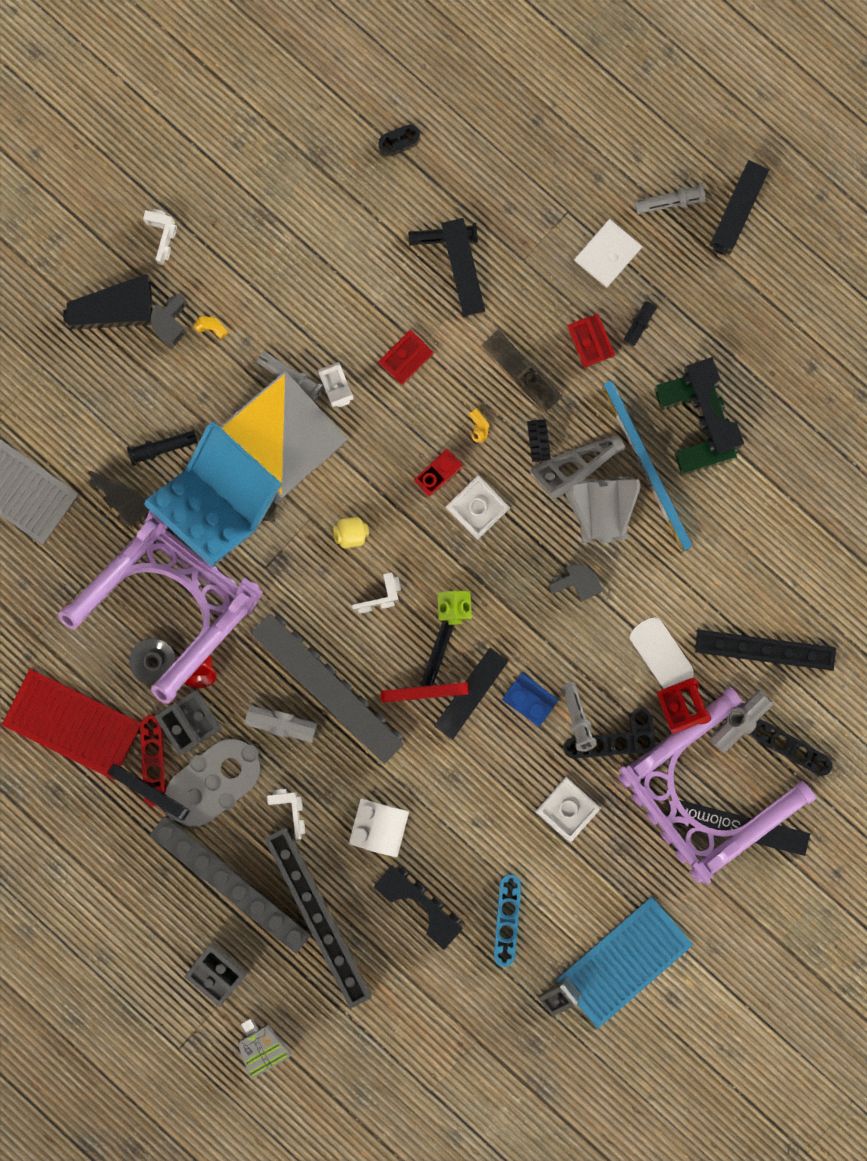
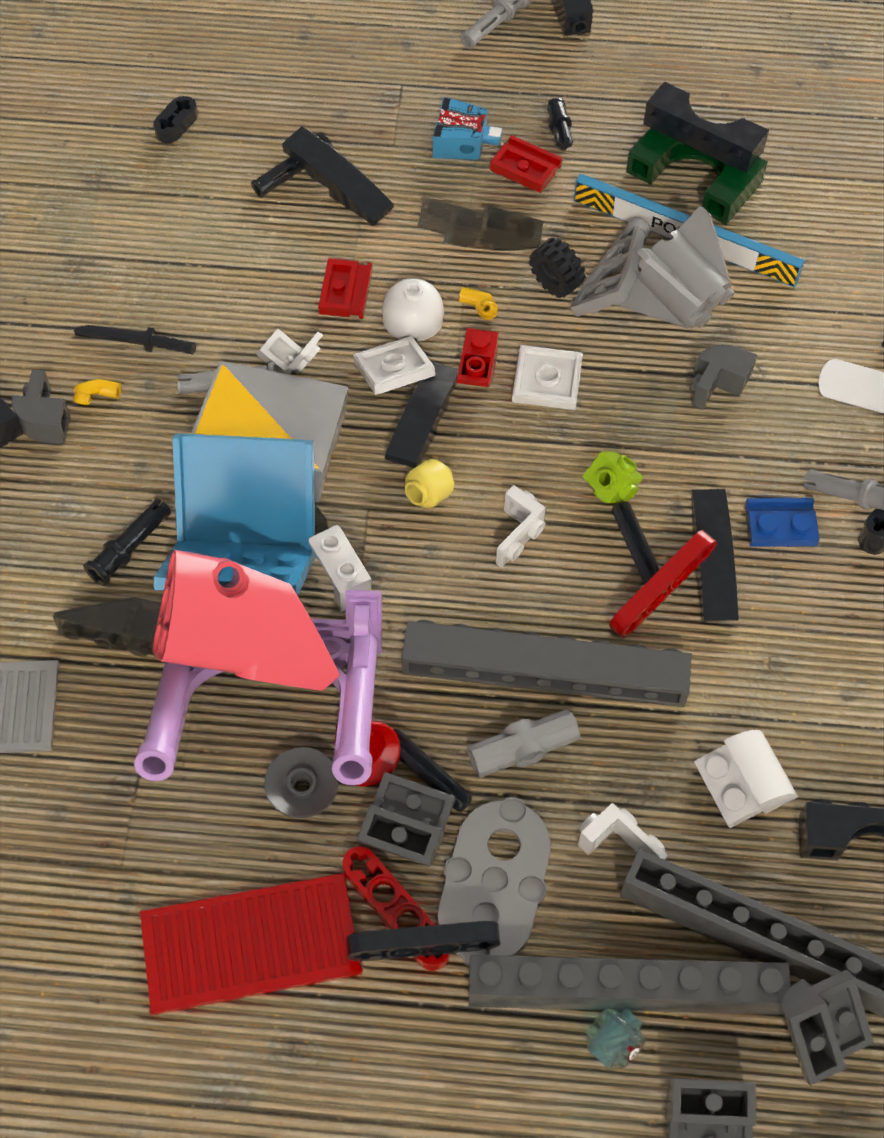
camera: 40 degrees left, 25 degrees down
(167, 564) = (240, 627): none -> coral panel
(205, 903) = (615, 1038): none -> clear light blue head
(223, 701) = (431, 772): none -> black axle
(259, 552) = (340, 563): none -> white bracket
(265, 310) = (146, 339): none -> black sword
(301, 974) = (825, 1024): none -> dark grey brick
(382, 483) = (421, 417): none -> black slope
(391, 436) = (394, 365): none -> white tile
(434, 403) = (413, 310): none -> white cylinder
(570, 286) = (462, 131): none -> dark azure torso
(608, 253) = (476, 87): white piece -> none

